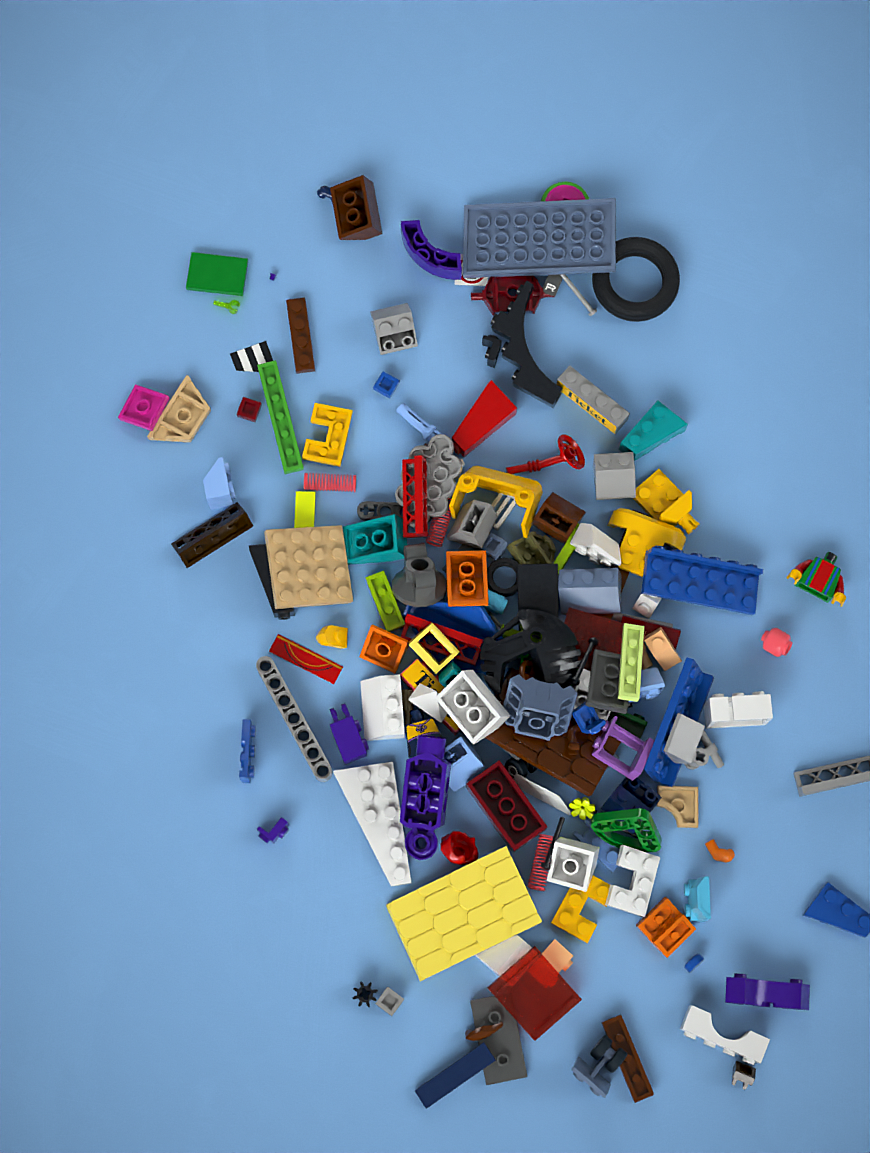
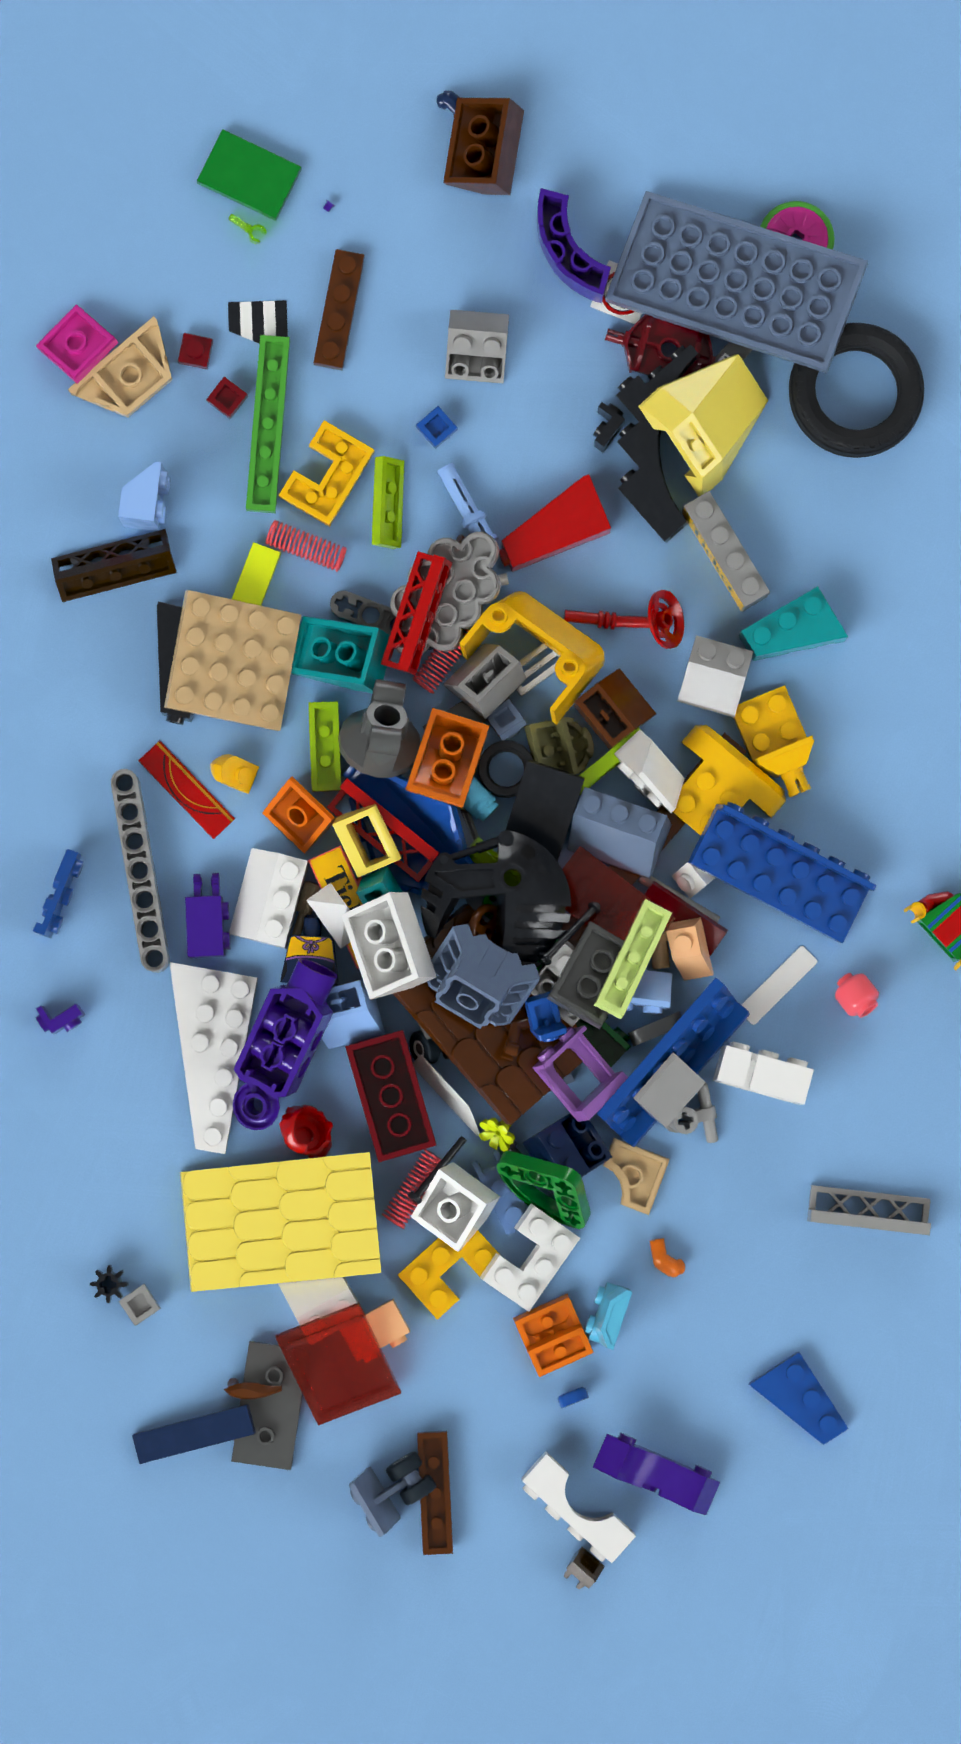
camera: 15 degrees right, 10 degrees up
(219, 388) = (195, 351): none -> dark red plate
(372, 439) = (388, 502): none -> lime plate
(553, 321) = (707, 417): none -> light yellow wedge
(592, 311) = (775, 417): light grey piece -> none
(658, 707) = (653, 1029): none -> dark grey beam
(725, 653) = (779, 984): none -> white sticker

